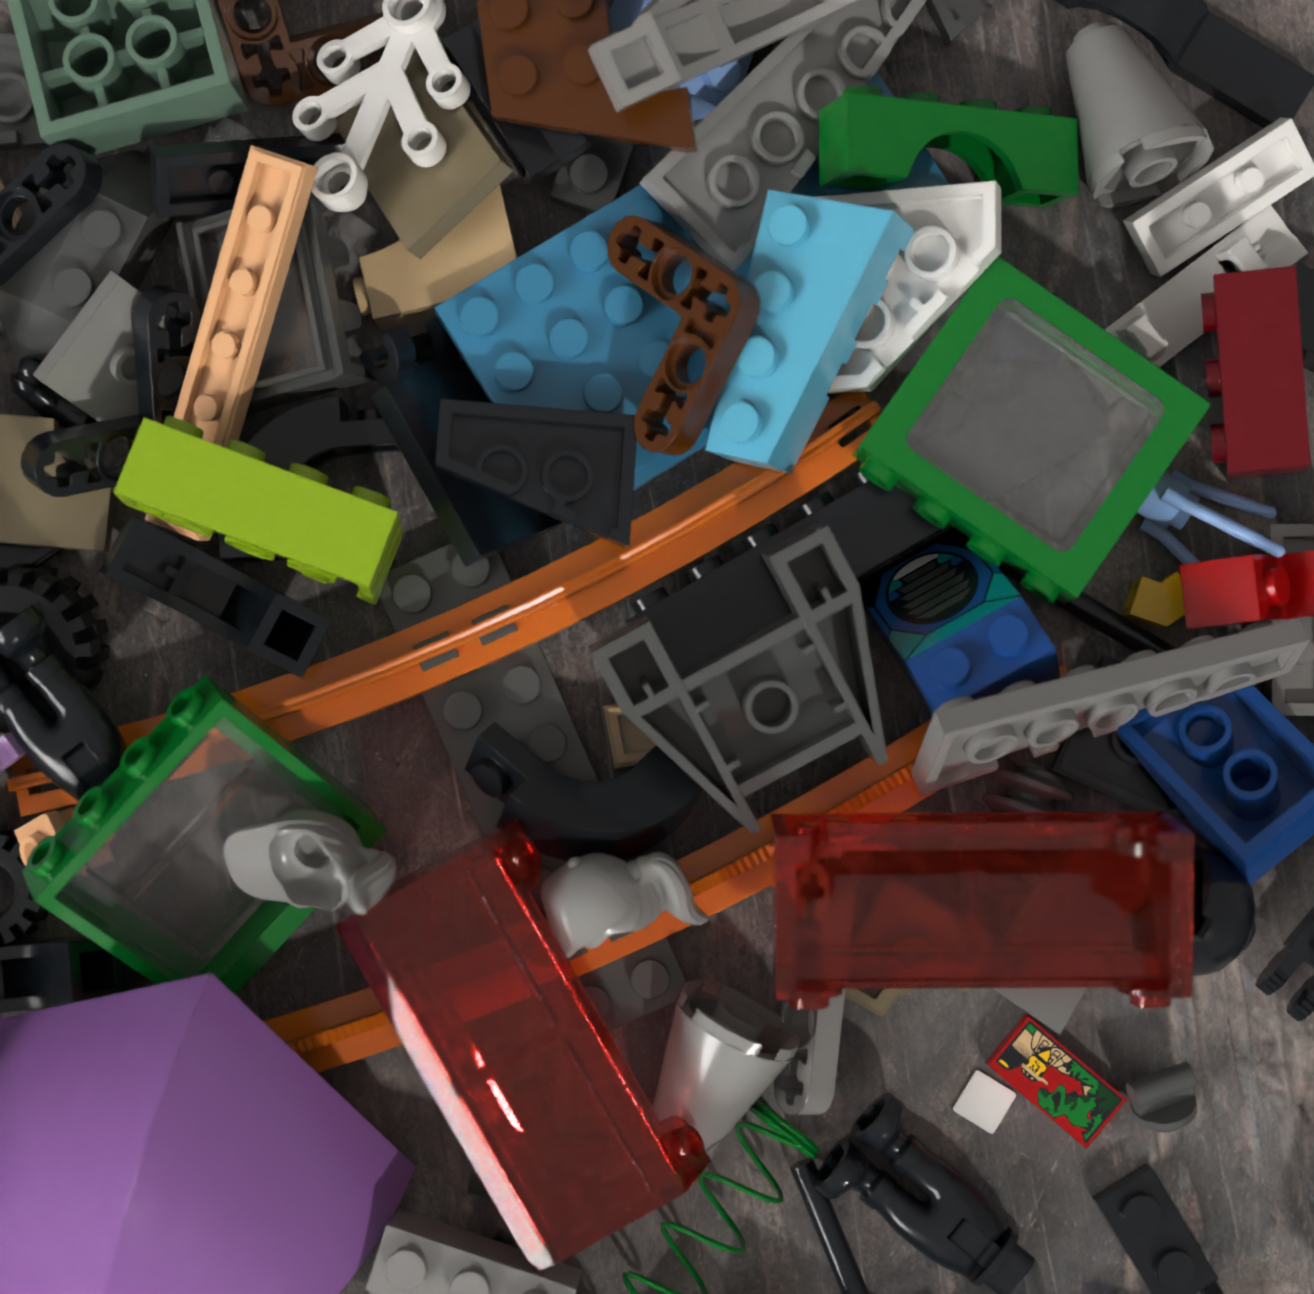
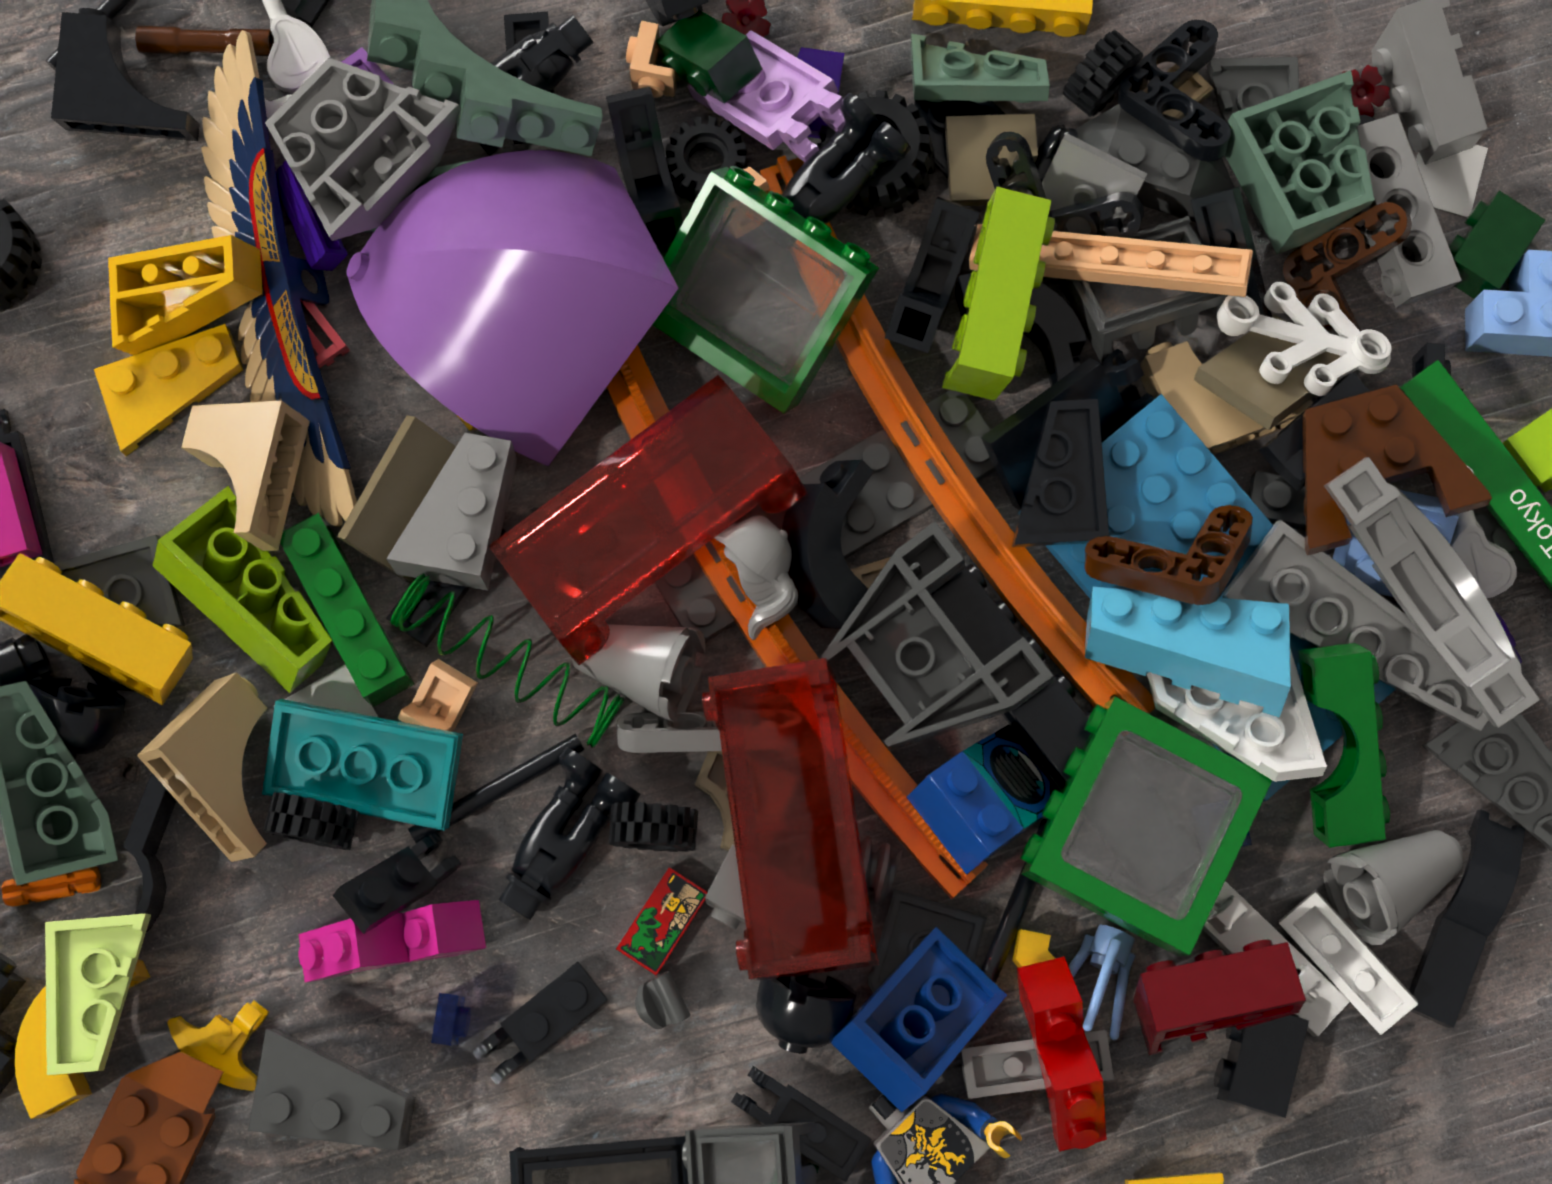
camera: 75 degrees right, 10 degrees down
(309, 862) = (758, 354): light grey hair -> none
(940, 1083) = (653, 827): none -> black tyre
(972, 733) = (917, 809): light grey wing -> none
(984, 1102) = (640, 872): white sticker -> none

